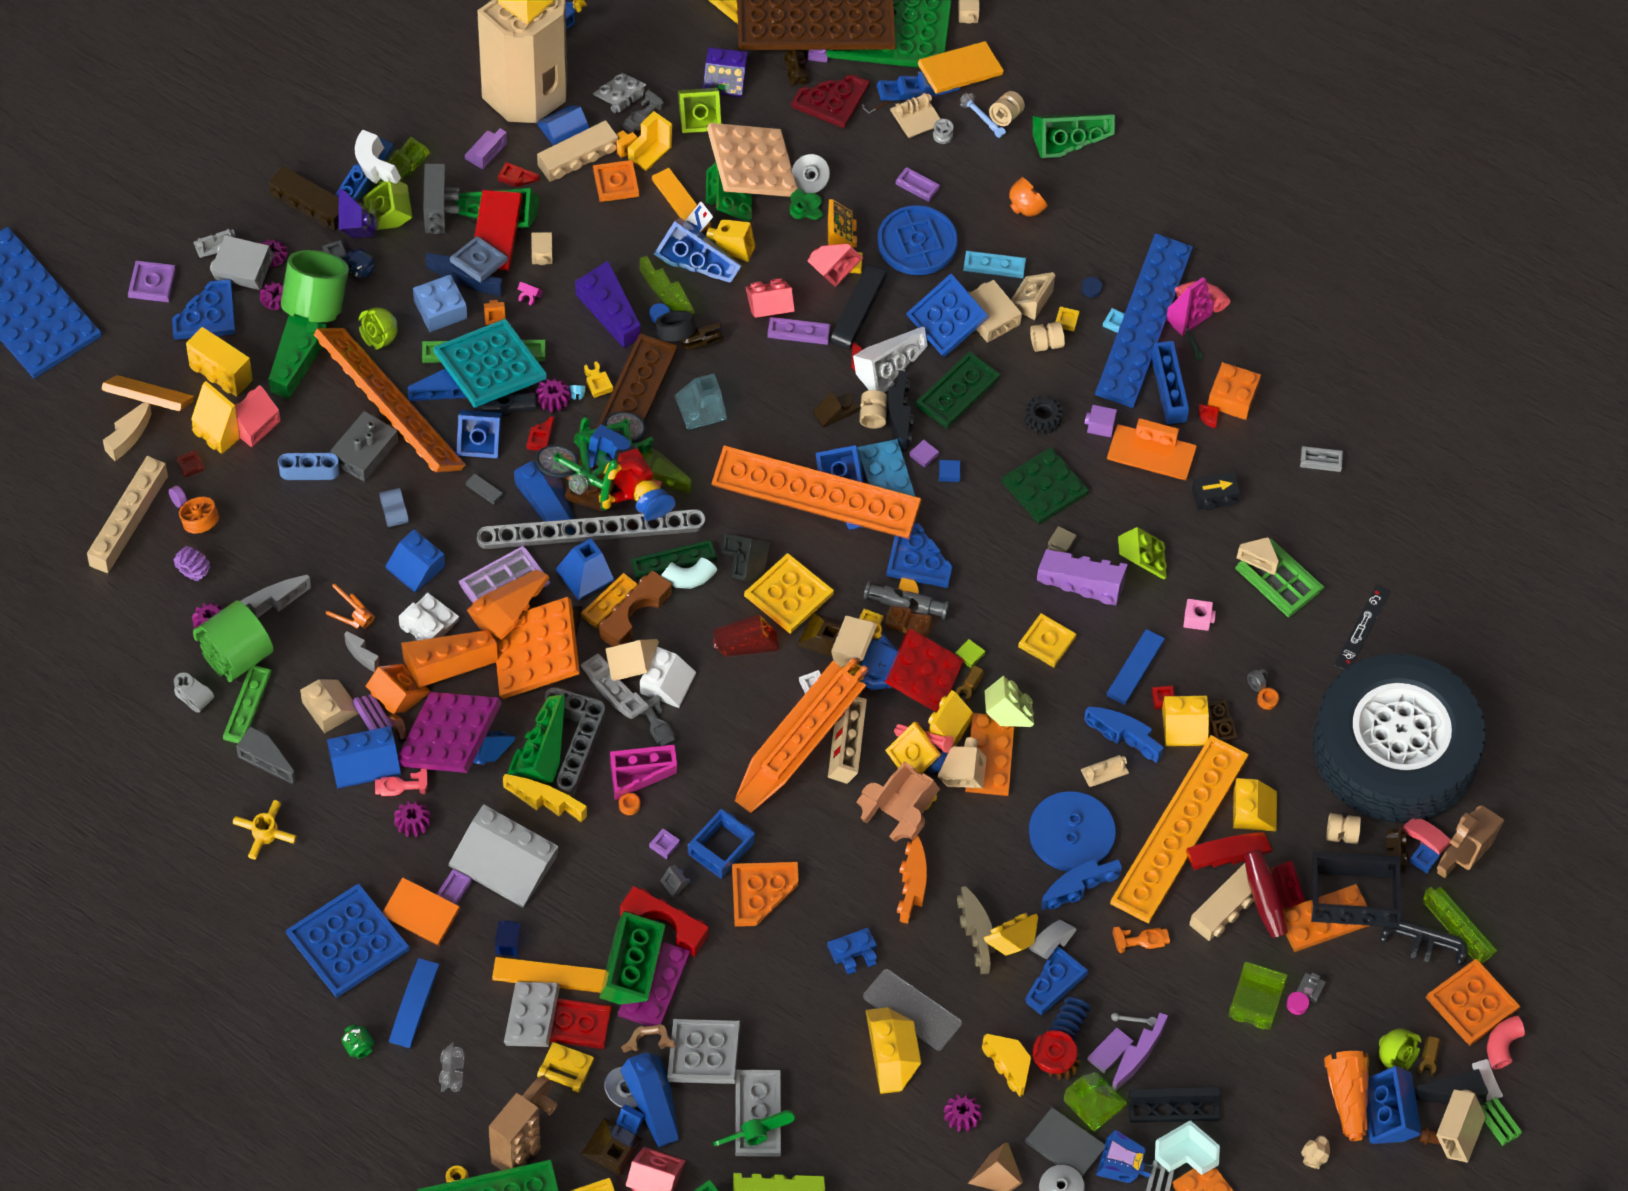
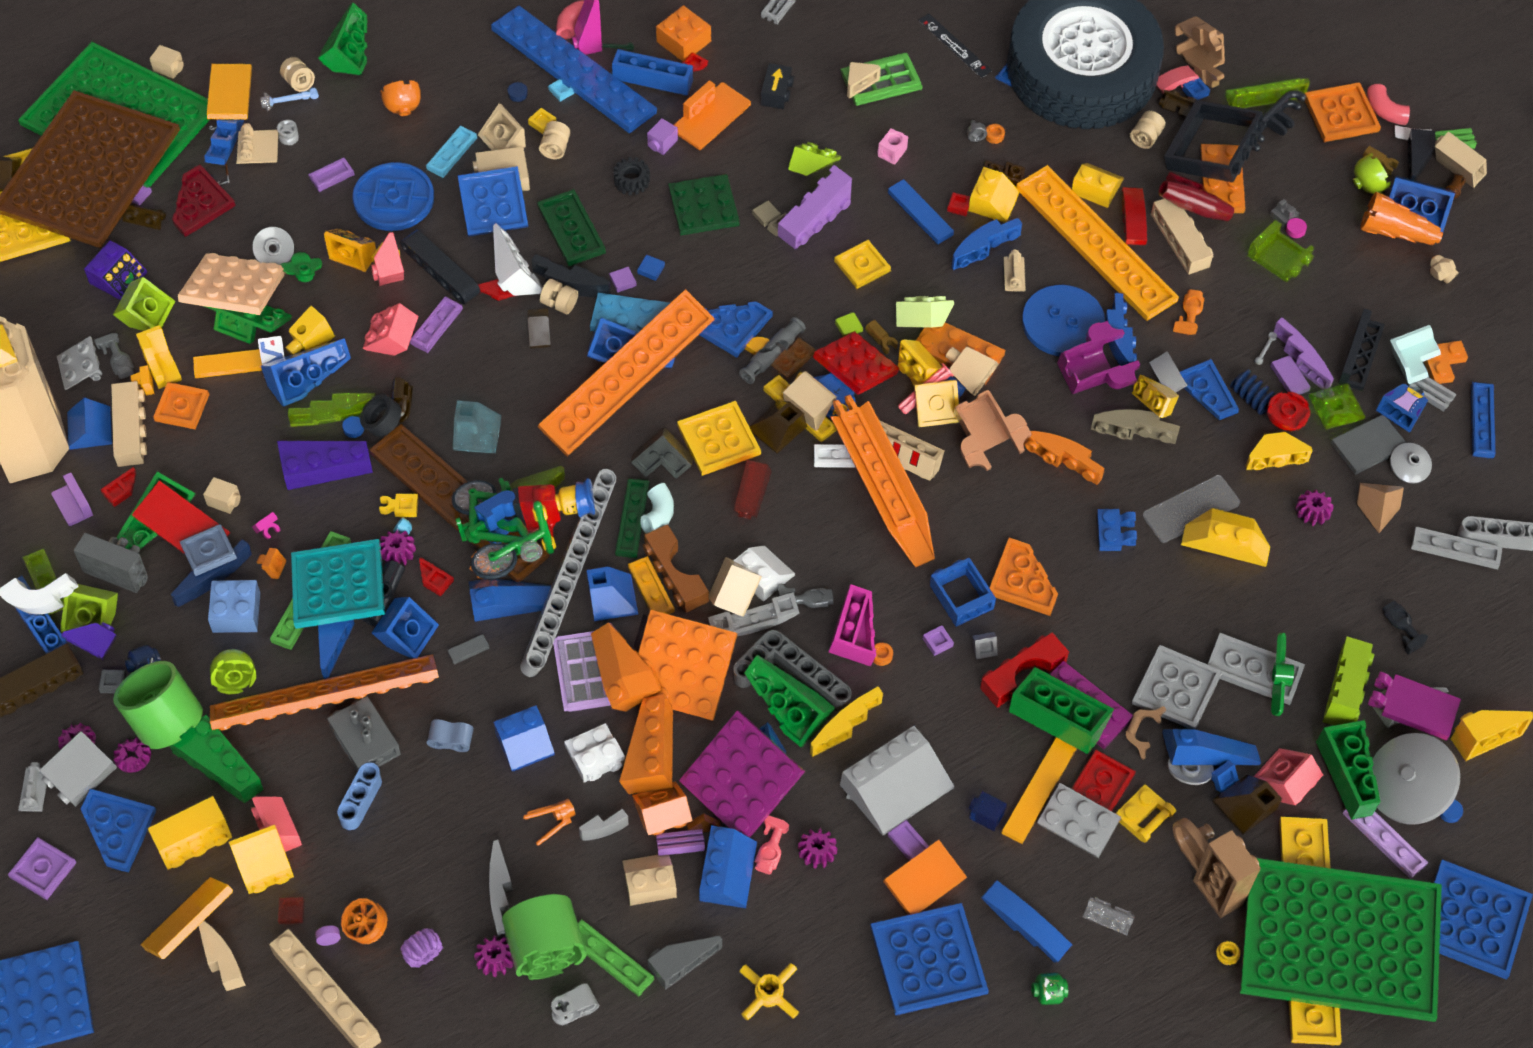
camera: 65 degrees left, 0 degrees up
(1029, 869) = (1087, 365): none -> magenta piece

